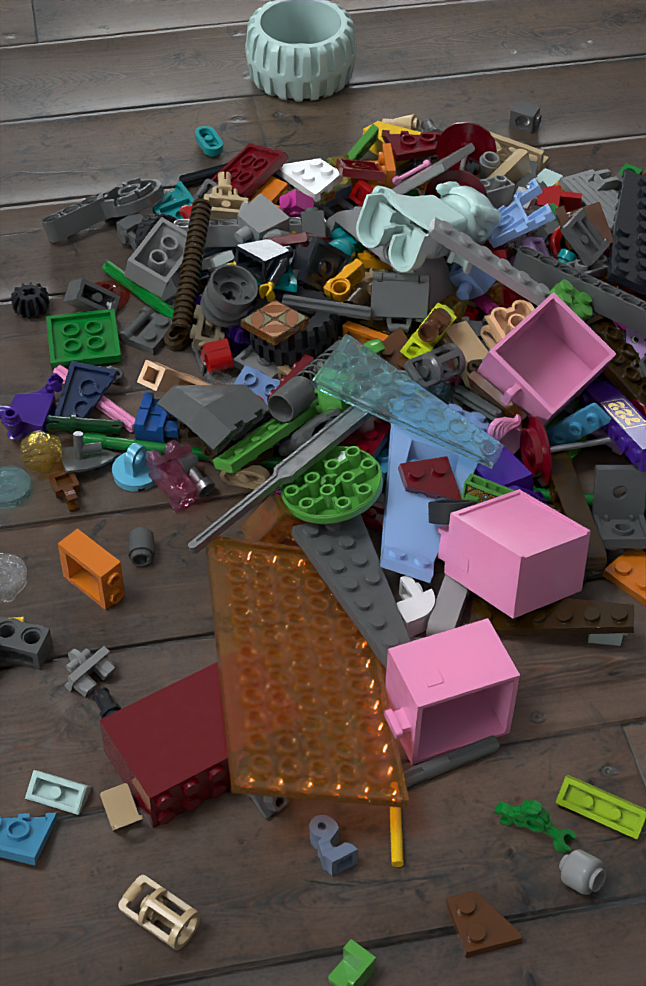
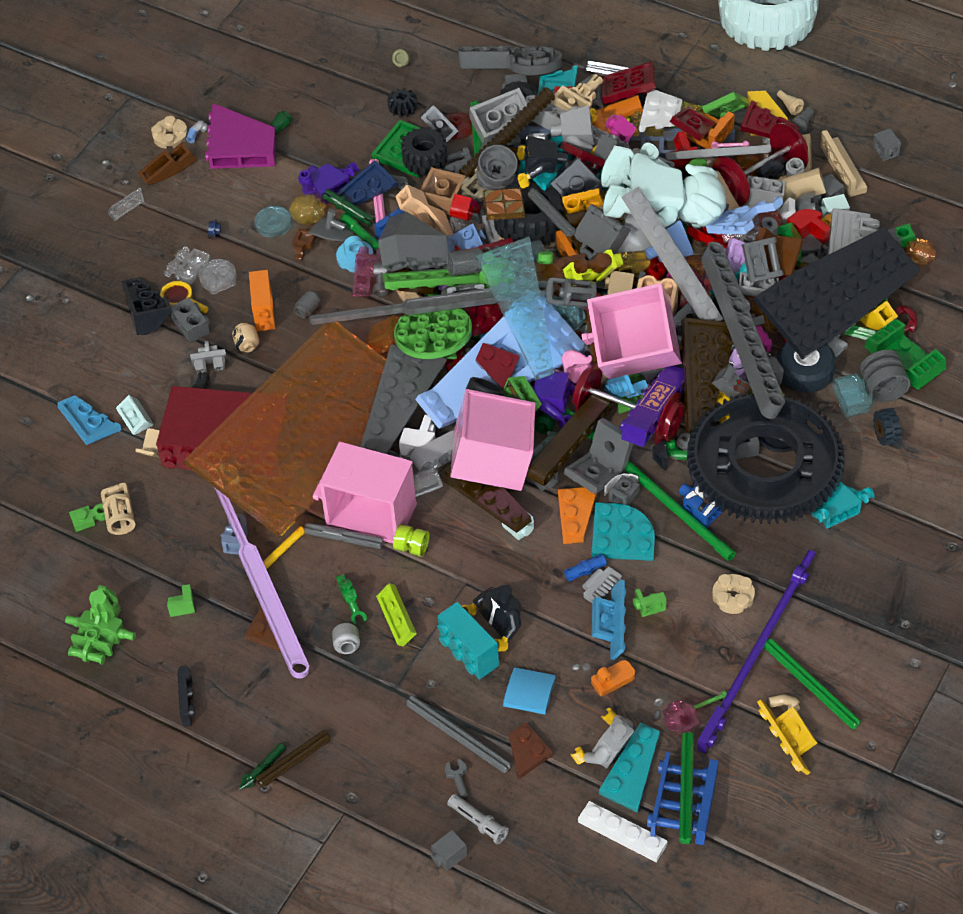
camera: 45 degrees right, 5 degrees up
(108, 621) = (245, 337): none -> tan head
(114, 327) = (423, 150): none -> black tyre
(123, 954) = (85, 518): none -> bright green plate
(173, 350) = (440, 188): none -> medium nougat slope
(209, 141) = (637, 43): teal plate -> none
(439, 881) = (266, 595): none -> lavender piece
(532, 715) = (411, 540): none -> lime wheel
(577, 301) = (710, 294): bright green plate -> none

